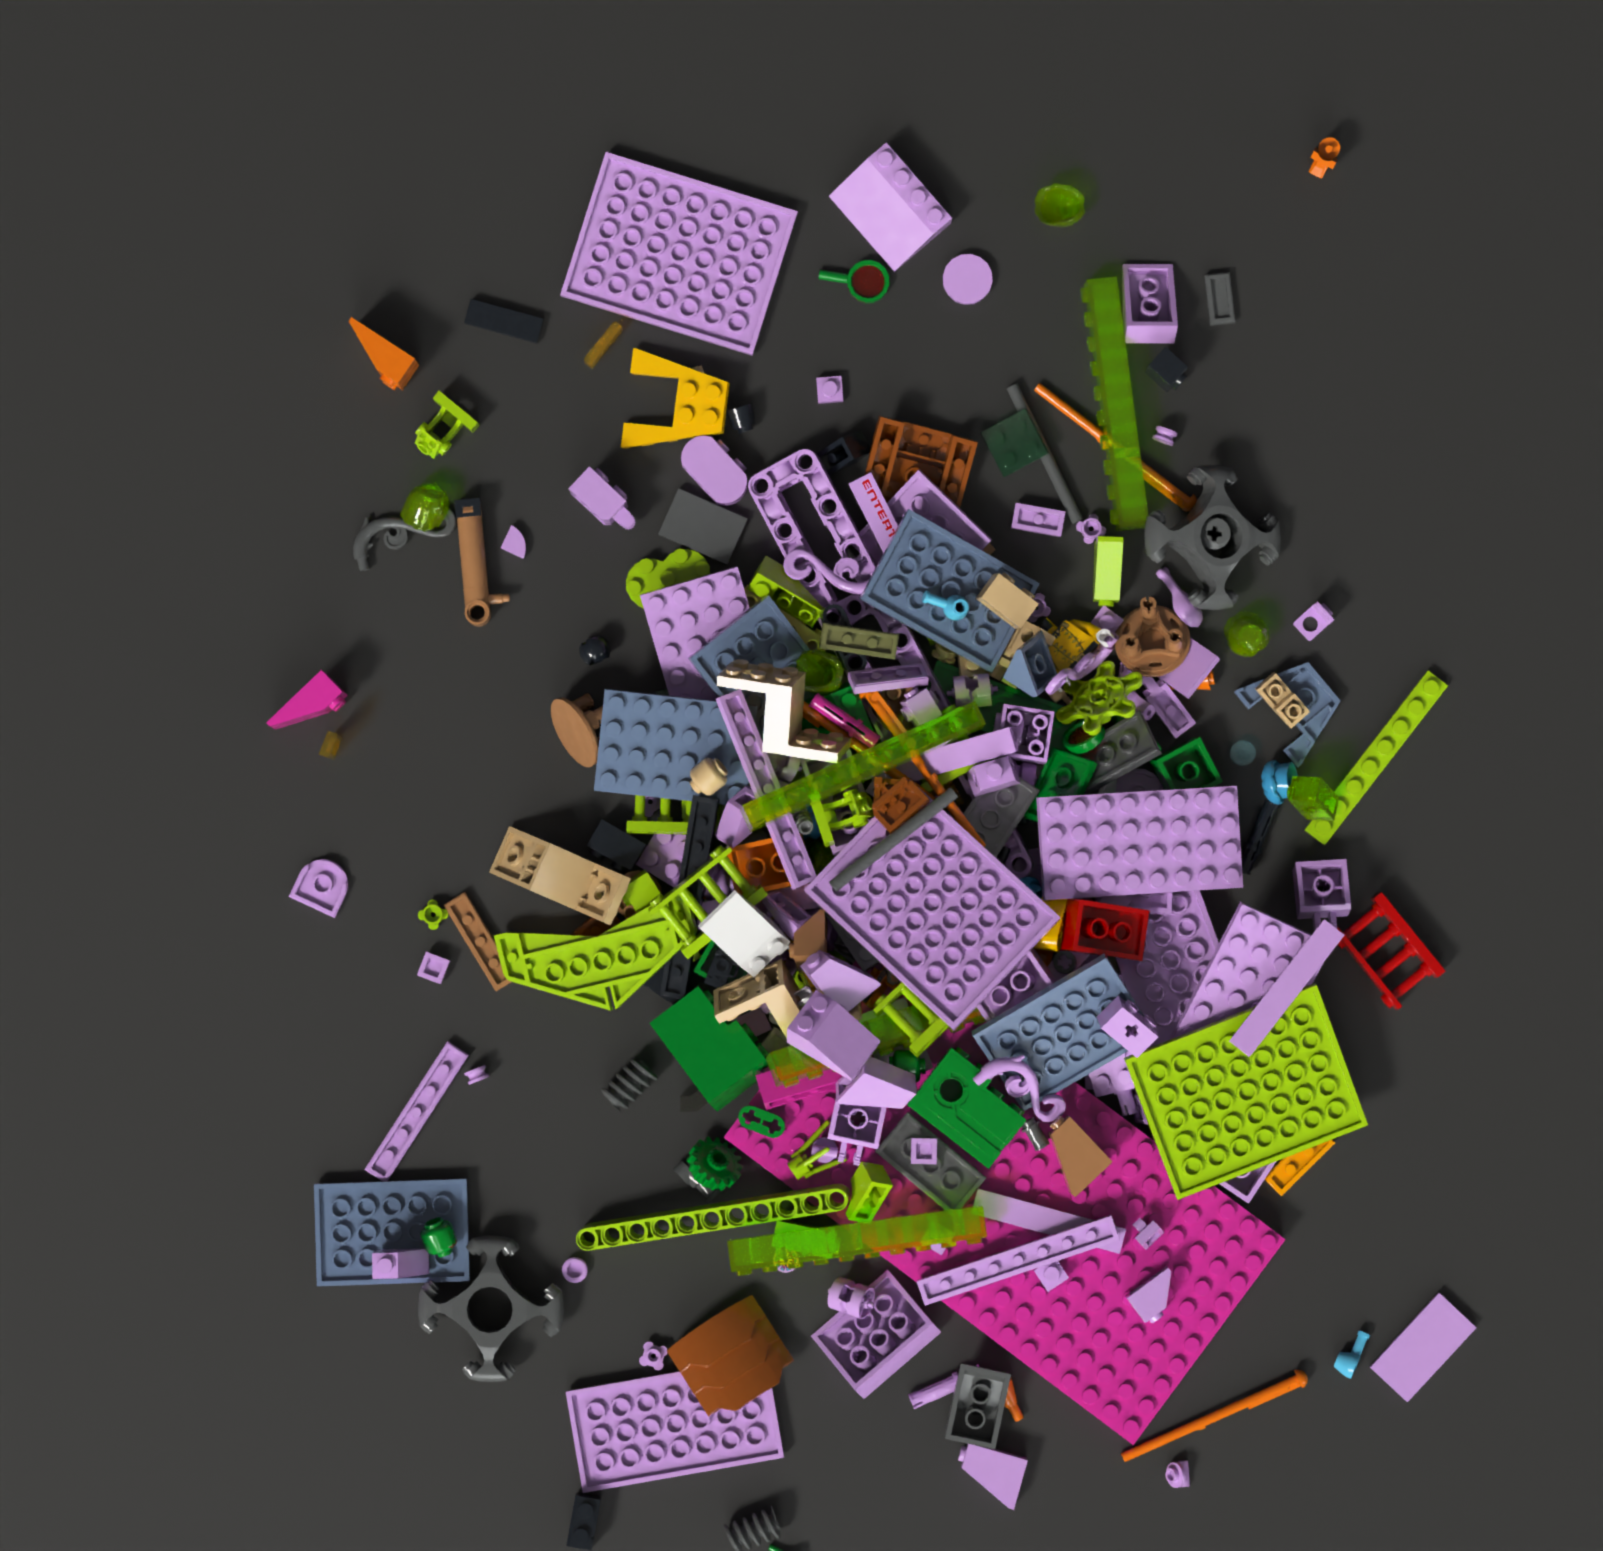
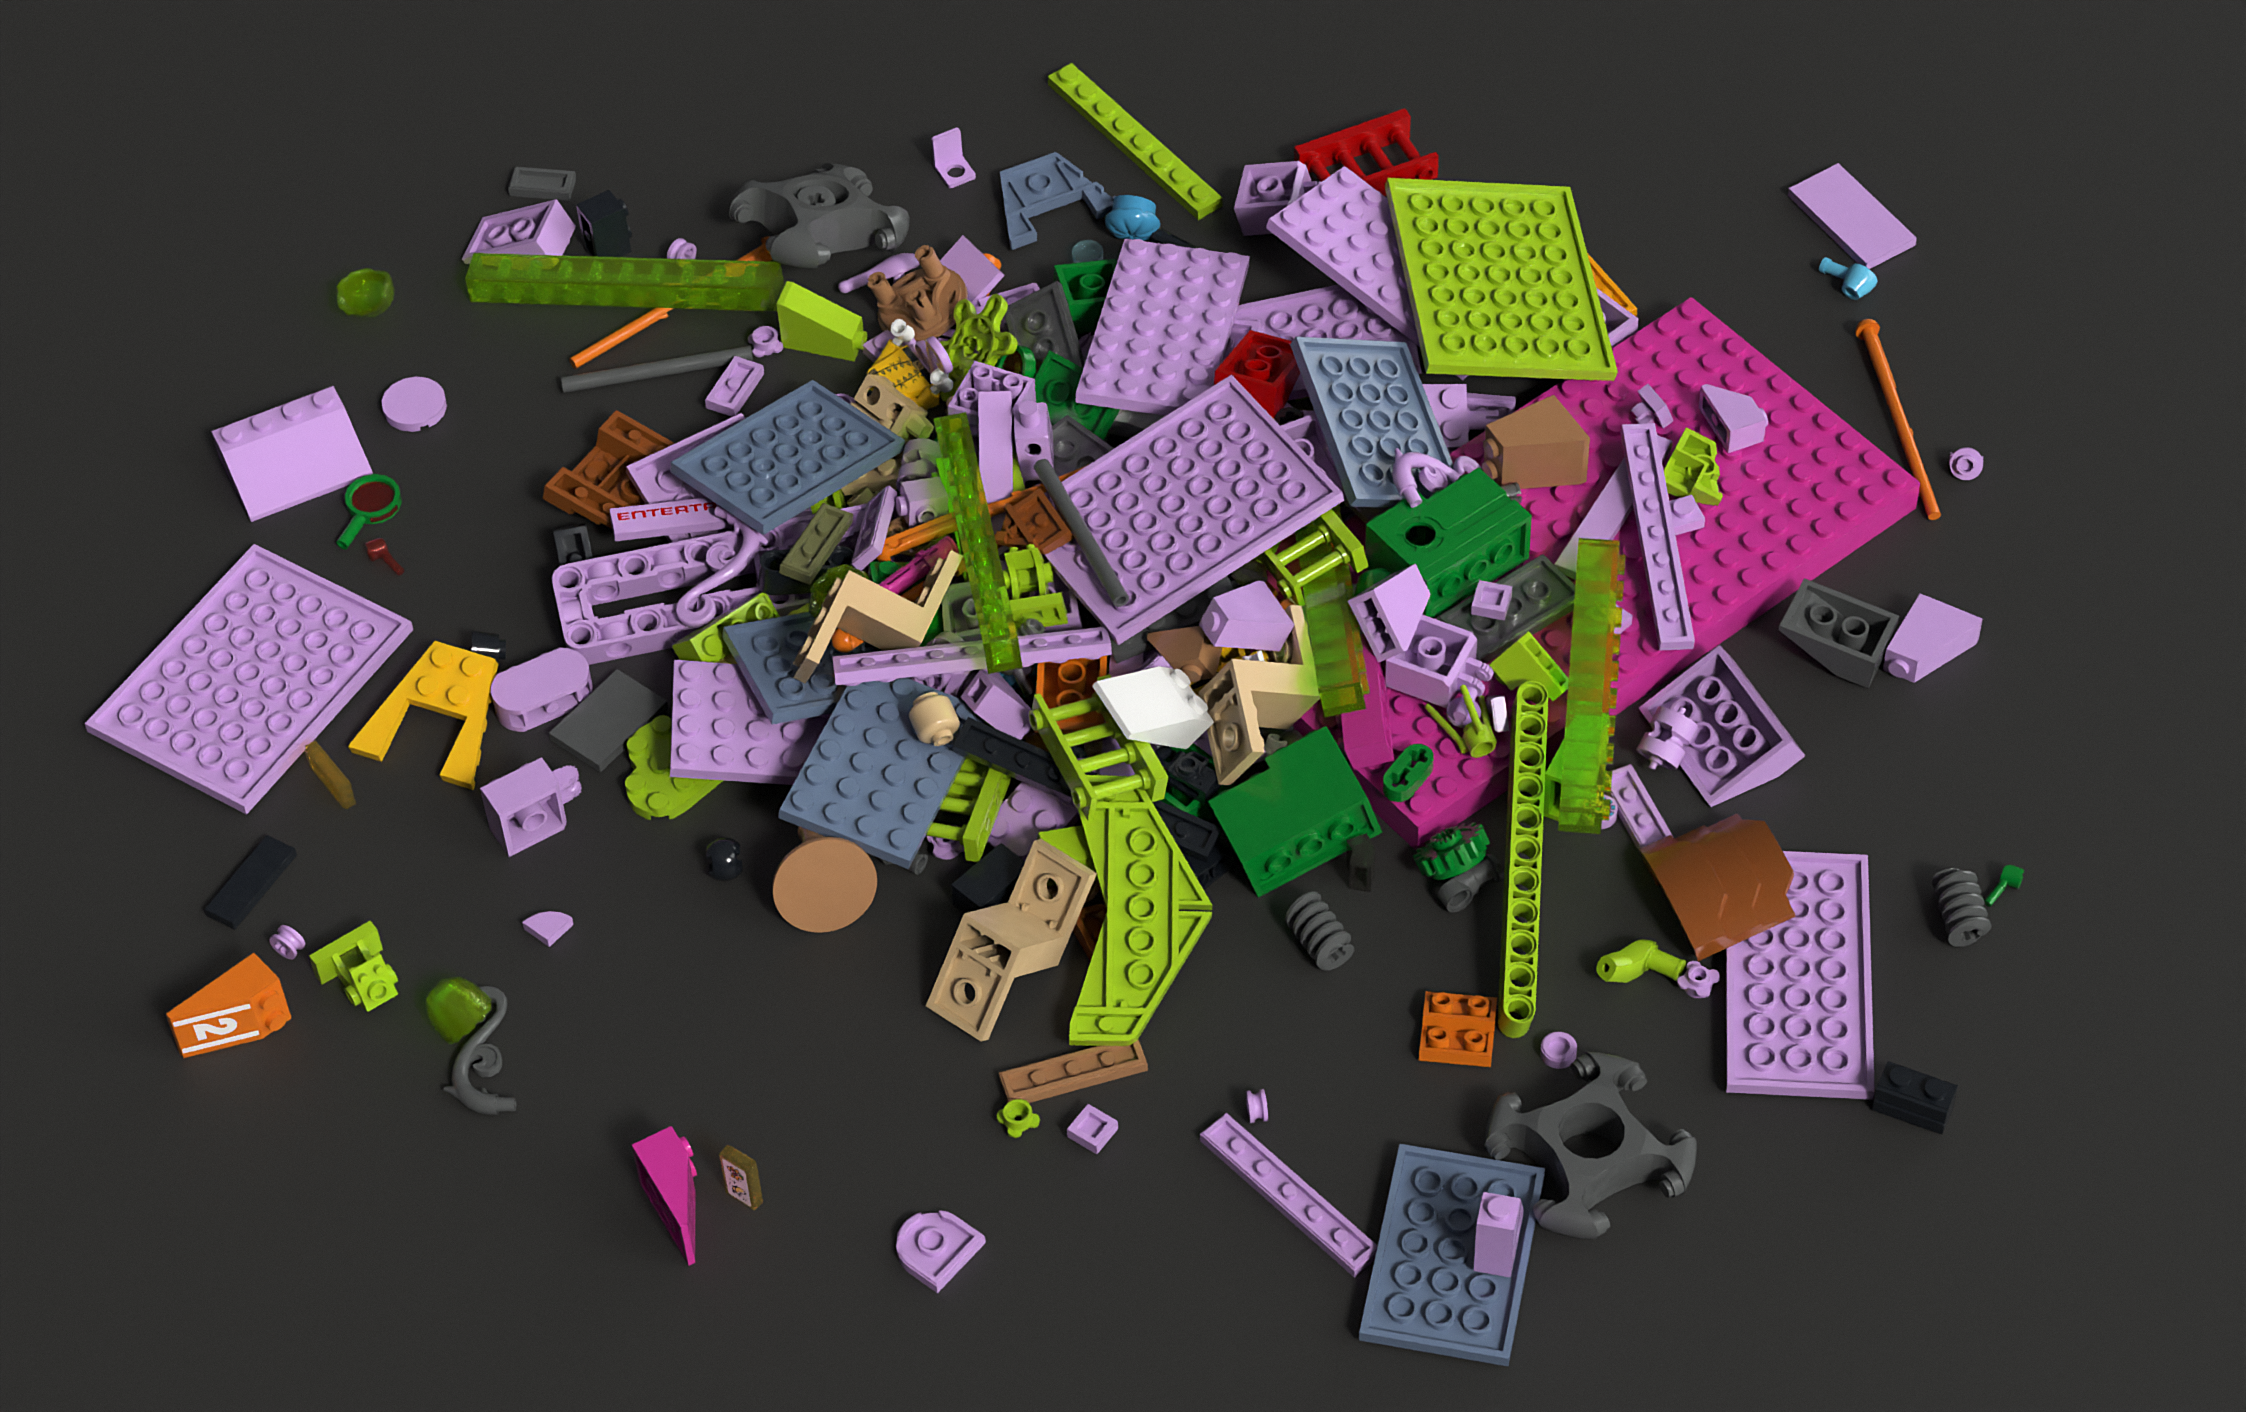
camera: 75 degrees left, 35 degrees down
(438, 1237) = (1471, 1177): green head -> none
(456, 367) = (287, 942): none -> lavender bush
(473, 561) = (490, 965): medium nougat piece -> none
(575, 1197) = (1458, 1029): none -> orange slope
(658, 1309) = (1635, 960): none -> lime arm
(791, 1287) = (1636, 808): none -> lavender tile
(819, 304) = (378, 549): none -> clear red hand
(829, 389) = (490, 560): lavender plate -> none
(829, 1174) = (1497, 706): none -> tile
(831, 1036) = (1312, 623): lavender slope -> none
(934, 1391) = (1809, 680): lavender pin -> none
(948, 604) = (809, 446): medium azure bar -> none
(1007, 600) = (821, 399): tan brick -> none
(1015, 443) = (633, 388): clear green plate -> none
(1031, 666) = (913, 385): sand blue slope -> none
(1095, 1273) = (1694, 469): none -> lime slope
(1128, 1026) = (1387, 348): lavender brick -> none
(1246, 634) = (946, 219): clear neon green hair -> none
(1282, 700) = (1042, 195): tan slope -> none
(1286, 988) = (1384, 200): lavender tile -> none
(1313, 798) = (1162, 181): clear neon green brick -> none
(1324, 156) = (422, 56): orange hips -> none

